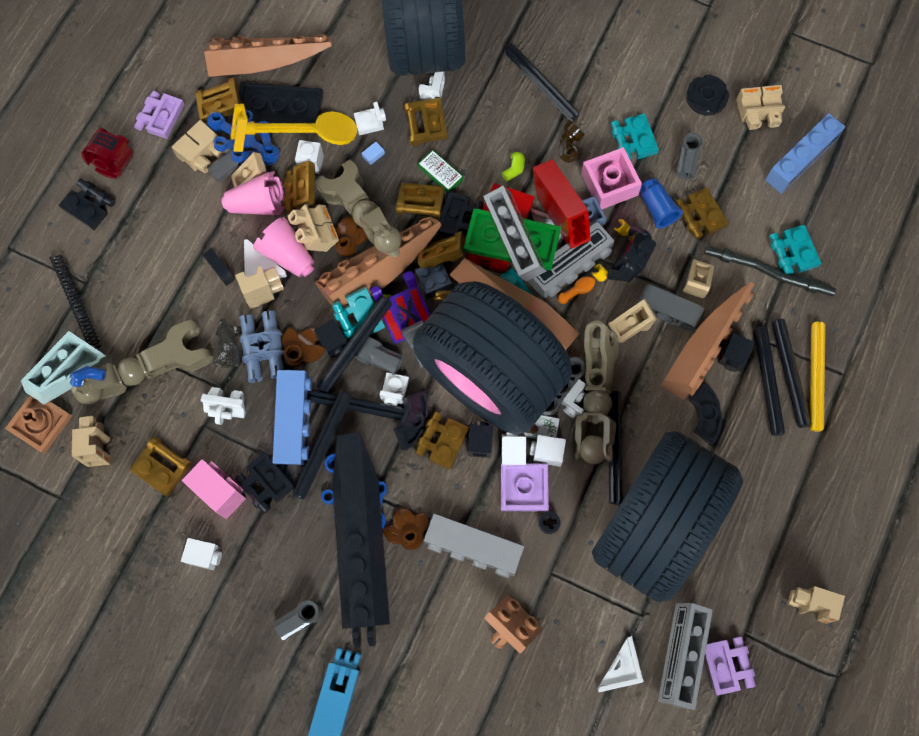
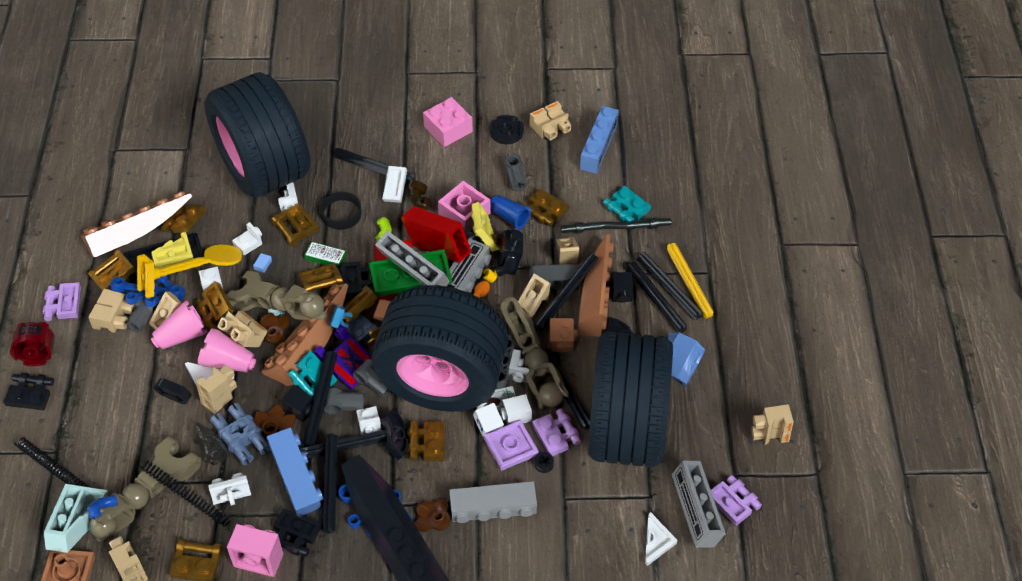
camera: 30 degrees left, 20 degrees down
(191, 418) = (185, 495): none -> black piece
(286, 105) = (173, 252): none -> light yellow wing
(315, 68) = (184, 218): none -> pearl gold plate
(412, 260) = (338, 315): none -> dark azure tile
(480, 440) = (459, 426): black brick -> none
(481, 105) = (341, 225): none -> black tyre
(512, 624) = (554, 542): nougat plate -> none
(551, 116) = (394, 184): none -> white tile
(571, 494) = (550, 435): none -> lavender plate
(617, 214) = (482, 226): none -> light yellow wing
(640, 135) = (469, 173): teal plate -> none
(641, 382) = (562, 334): none -> nougat head
(645, 60) = (447, 122): none -> bright pink brick
(671, 333) = (566, 291): none -> black axle
(758, 466) = (686, 357): none -> medium blue slope

